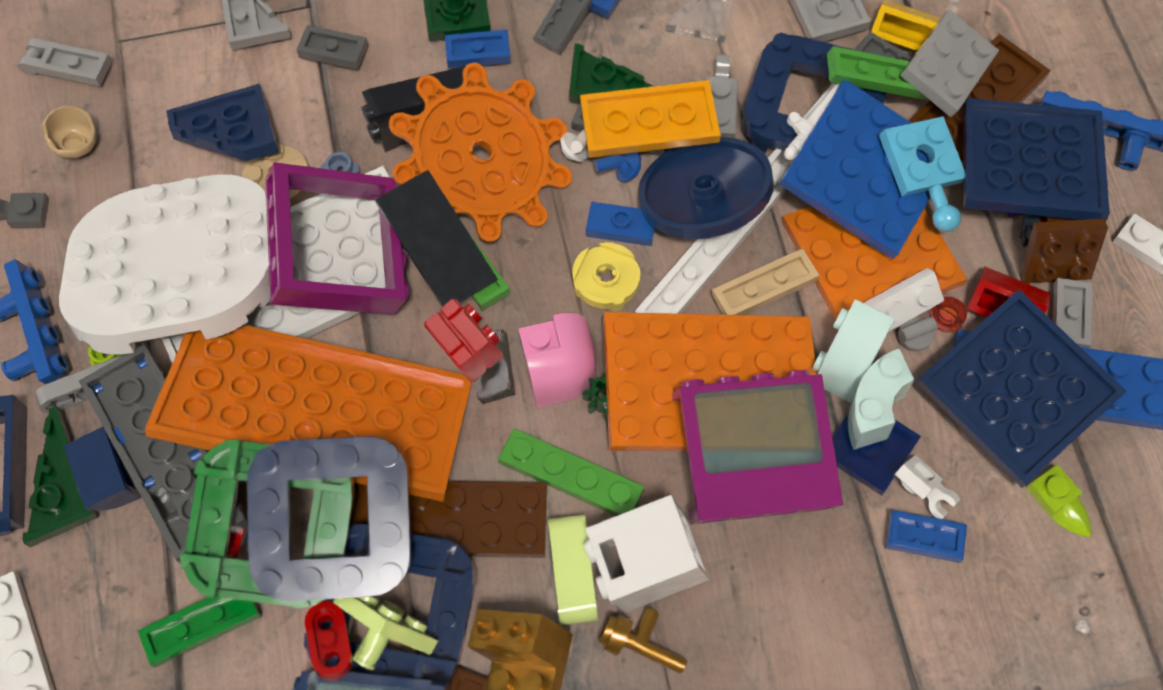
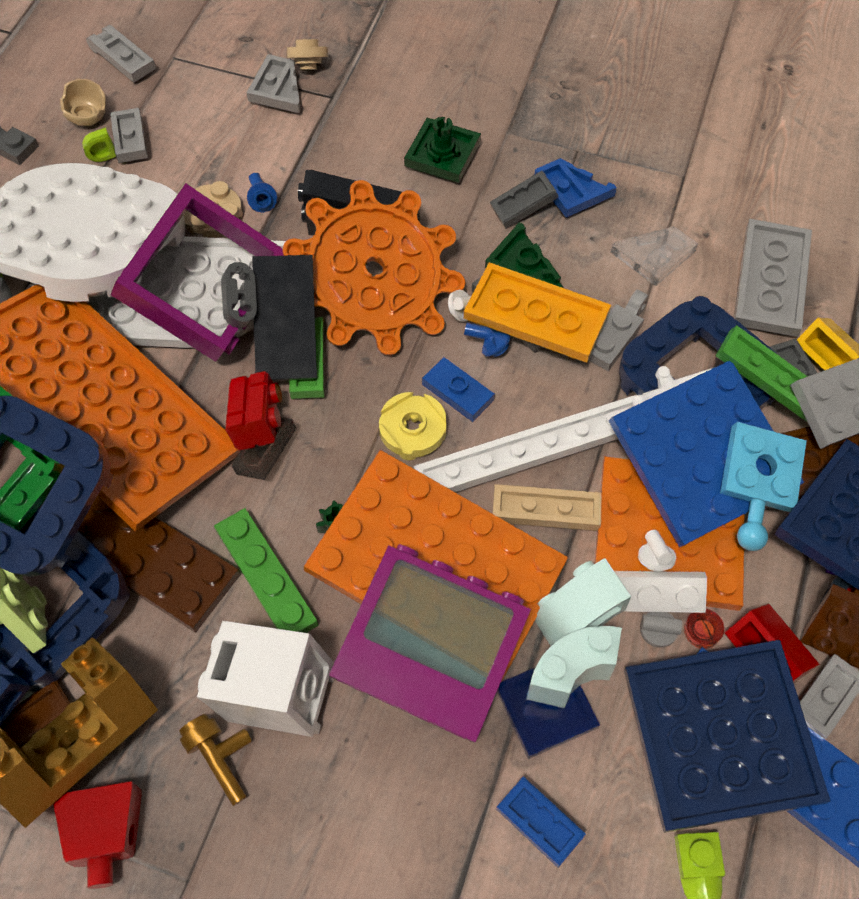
camera: 30 degrees right, 5 degrees down
(119, 168) = (98, 146): none -> lime tile
(139, 142) = (128, 135): none -> light grey plate
(227, 124) = (200, 153): dark blue plate -> none
(317, 137) = (261, 195): none -> blue plate
(332, 47) = (323, 134): dark grey plate -> none
(340, 160) = (264, 224): sand blue plate -> none
(387, 241) = (245, 294): none -> dark grey beam
(477, 47) = (438, 189): blue plate -> none
(559, 358) = (320, 468): bright pink brick -> none
(572, 570) = (182, 679): yellowish green beam -> none
(706, 188) = (546, 395): dark blue dish -> none
(881, 274) = (656, 554): none -> white plate
(924, 482) = (574, 770): white plate -> none

